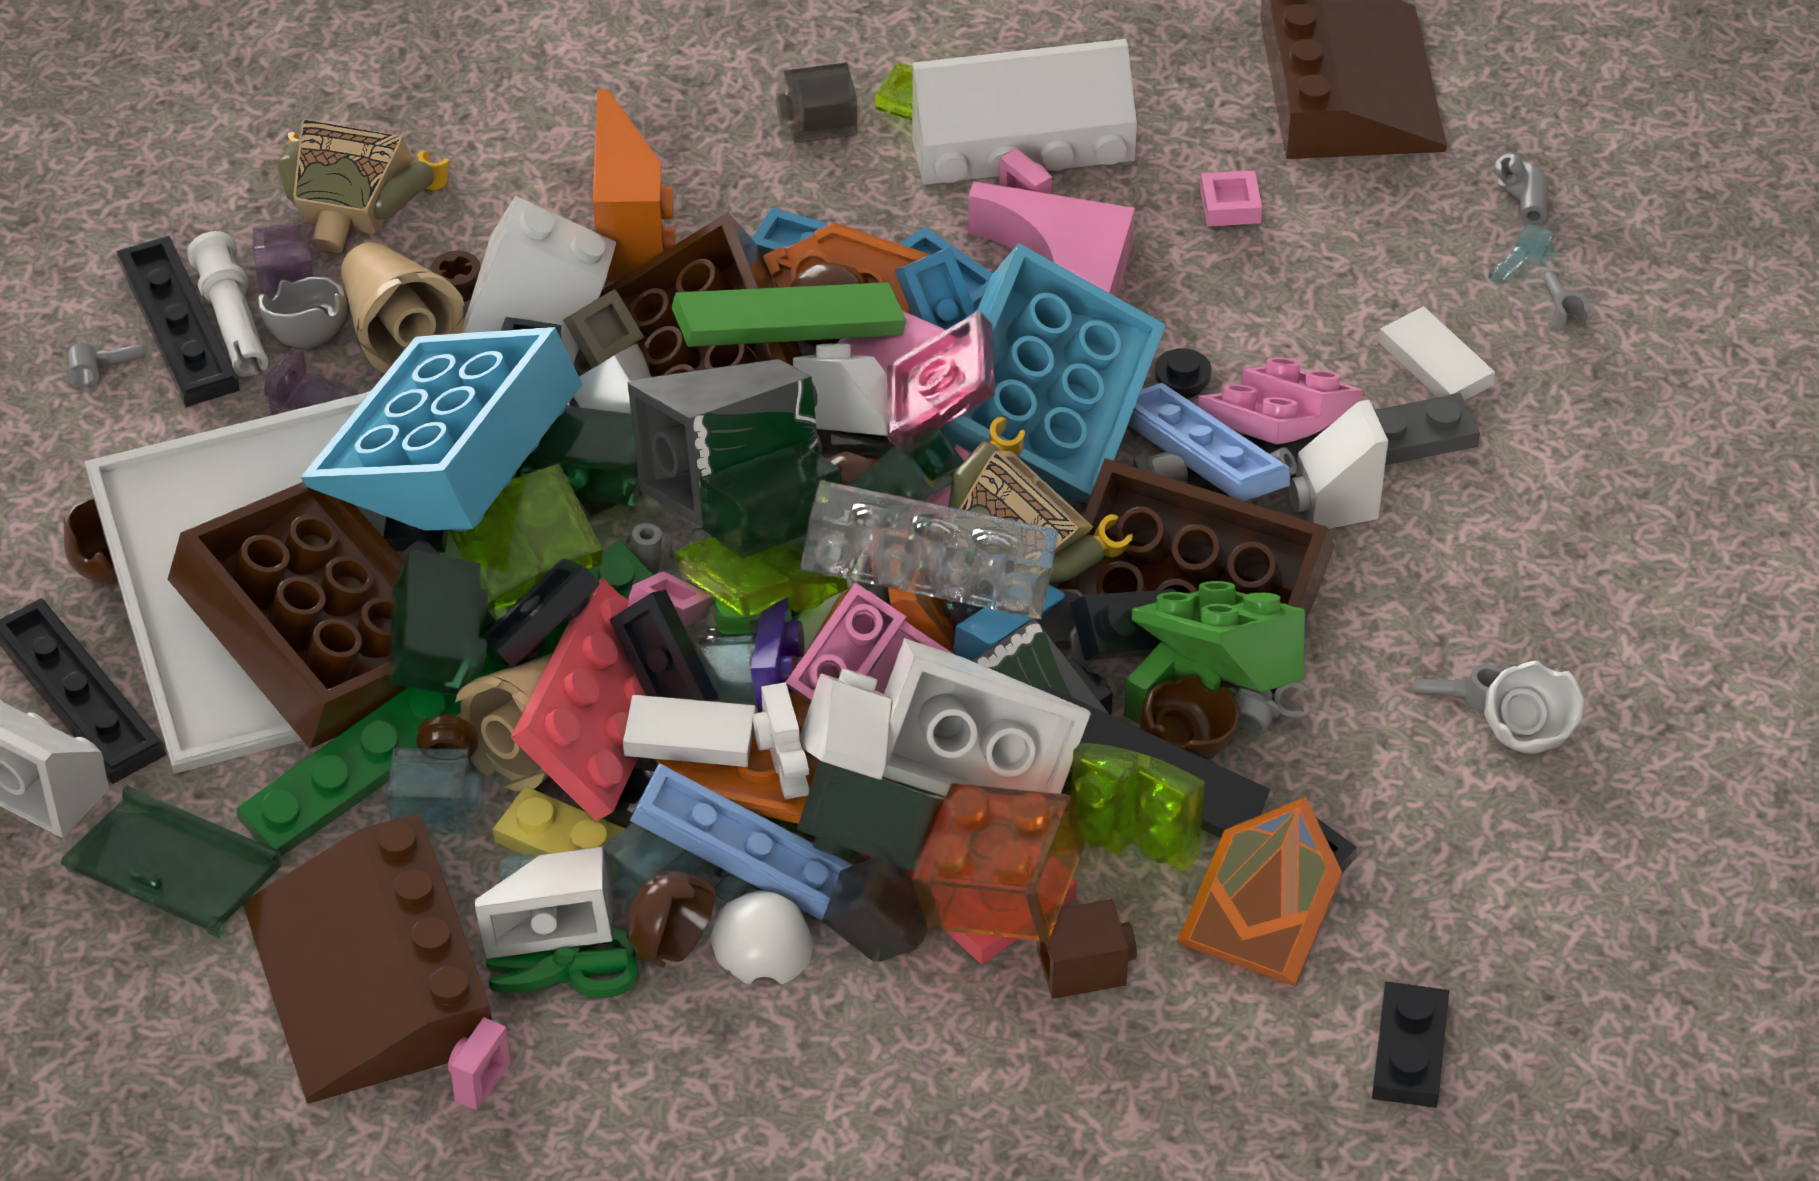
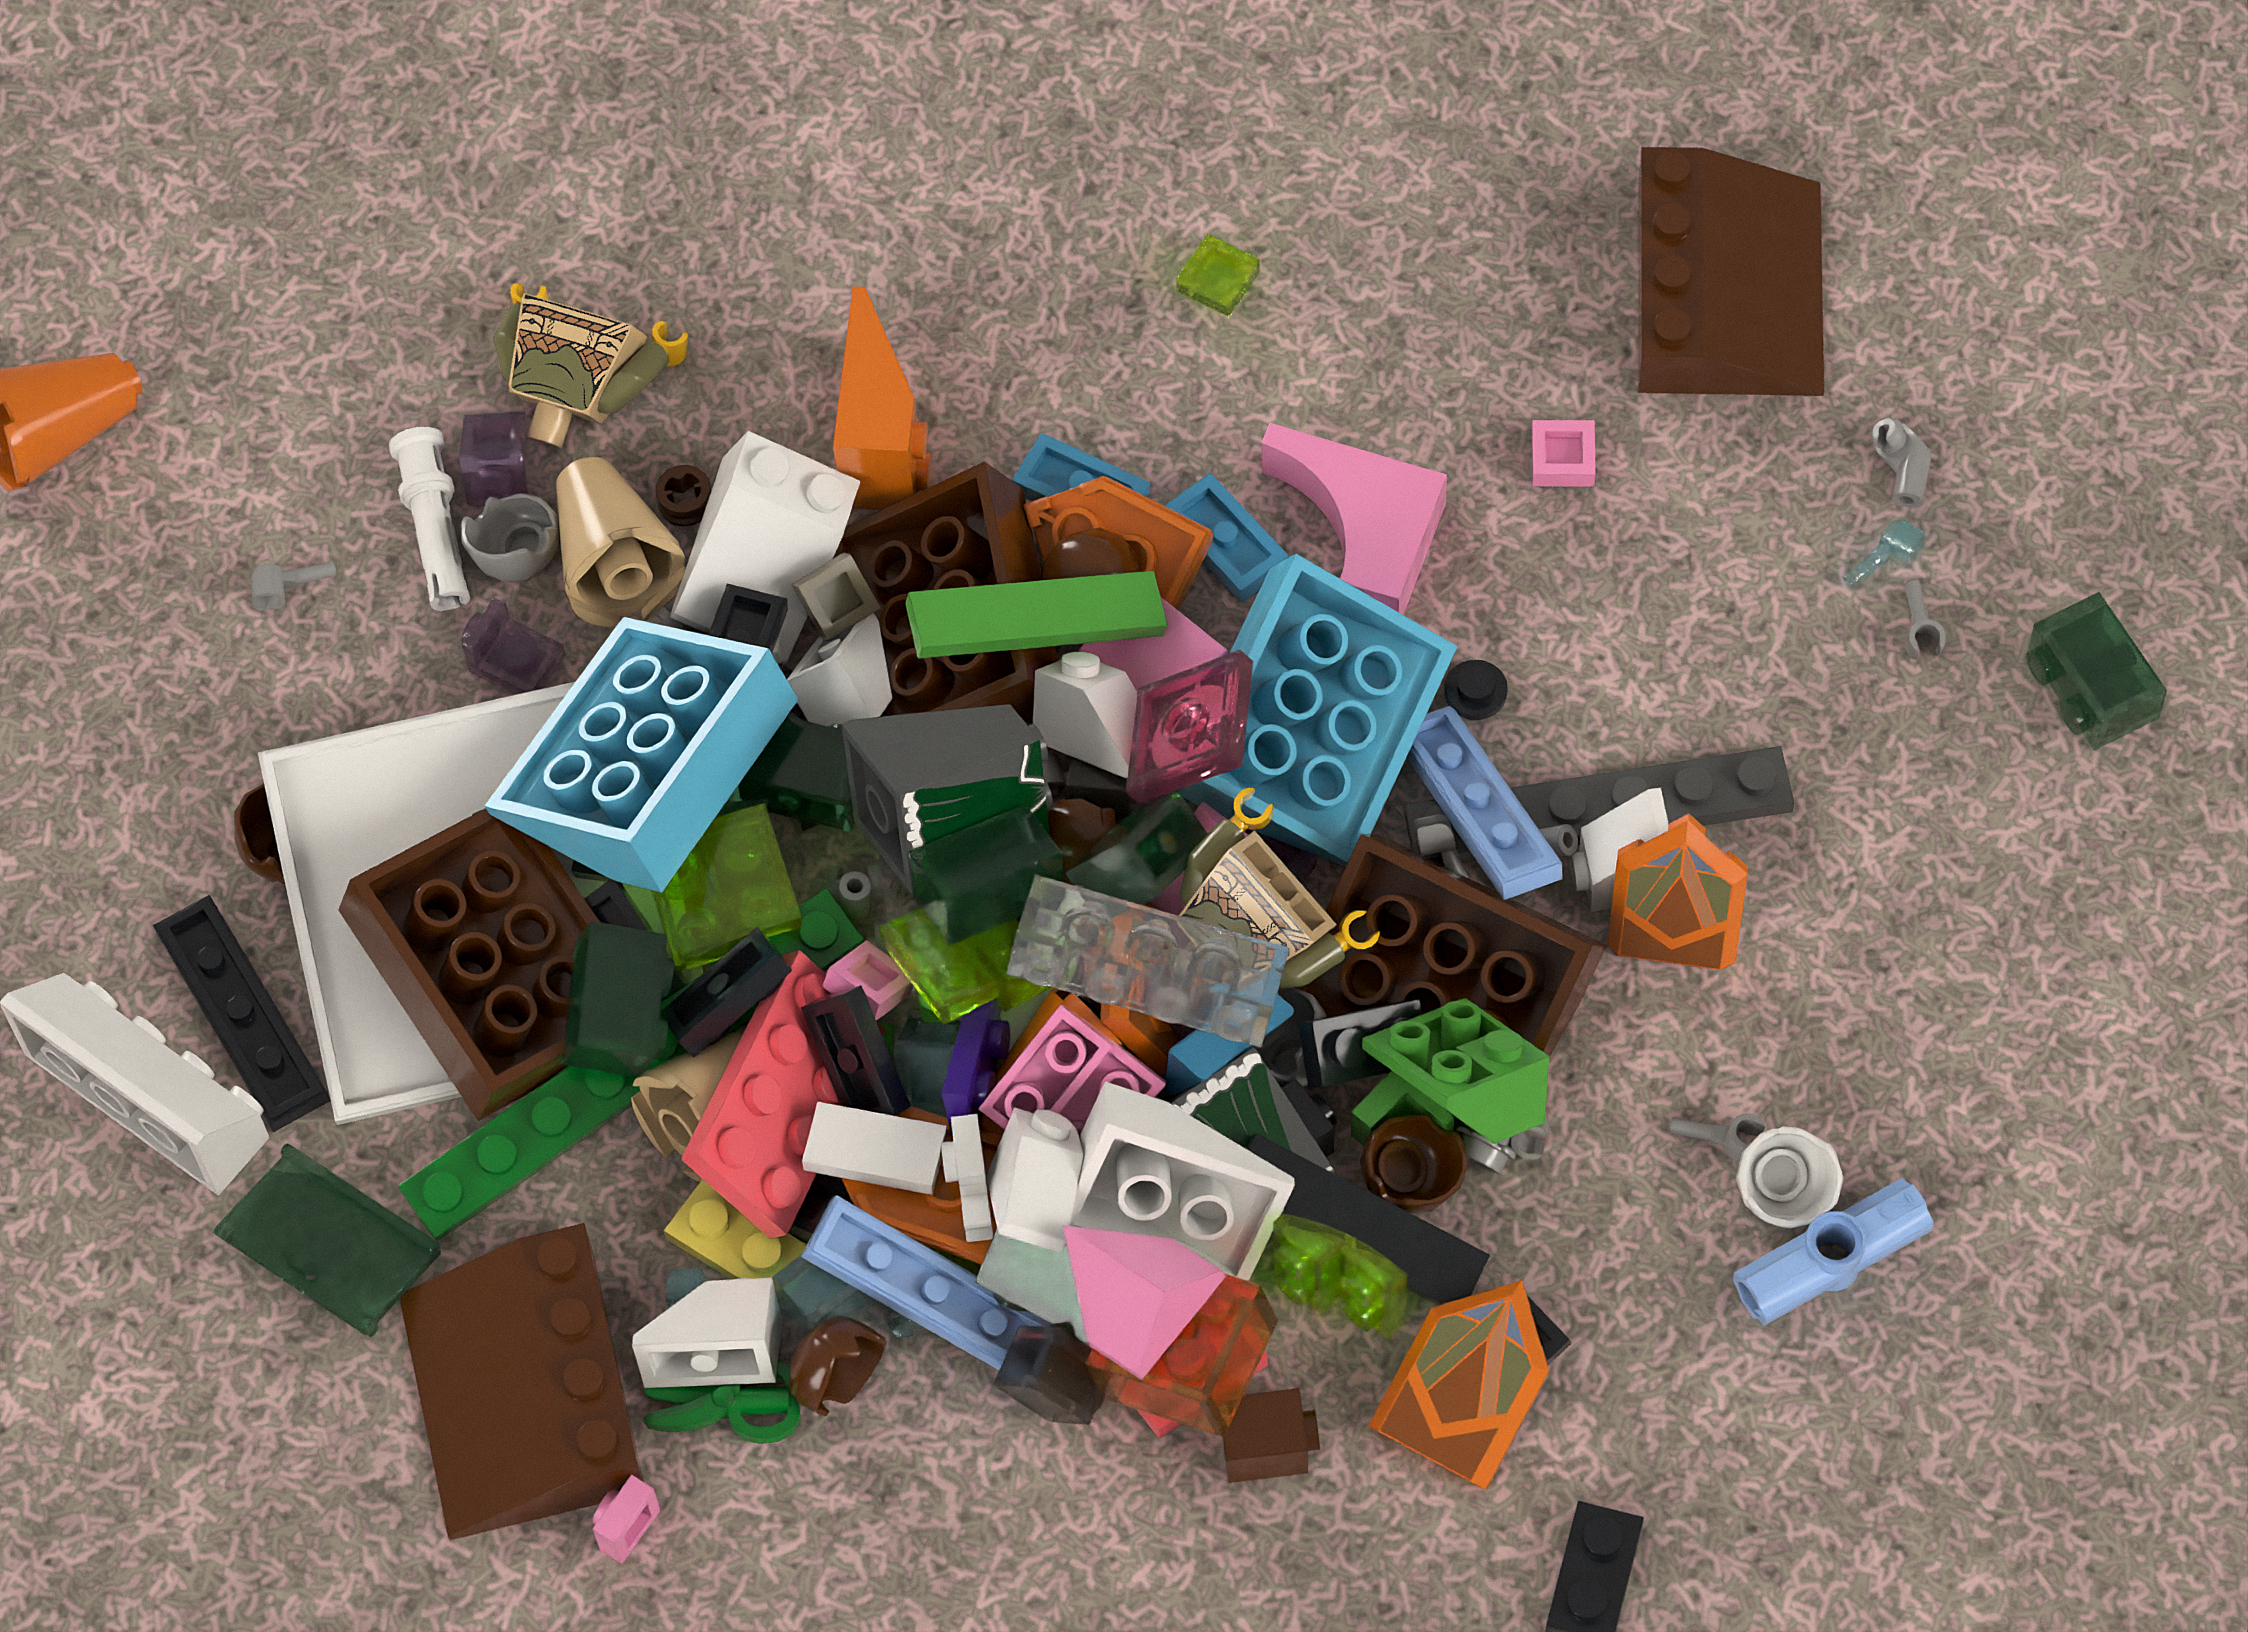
camera: 10 degrees right, 15 degrees up
(178, 321) = (374, 531): black tile -> none
(436, 786) = (603, 1181): clear light blue brick -> none
(447, 732) = (621, 1127): reddish brown plate -> none
(762, 938) = (932, 1389): white hair -> none
(818, 103) = (1110, 285): clear smoke brick -> none
(936, 289) = (1210, 585): dark azure plate -> none
(955, 806) = (1136, 1292): none -> bright pink slope
(1023, 173) = (1331, 415): bright pink plate -> none
(1050, 103) = (1339, 328): white slope -> none
(1281, 401) = (1574, 750): bright pink slope -> none
(1395, 494) = (1678, 899): none -> tile
(1436, 355) = (1764, 689): white tile -> none
(1583, 764) = (1865, 1230): none -> light blue piece
(1724, 320) = (2095, 672): none -> clear green brick

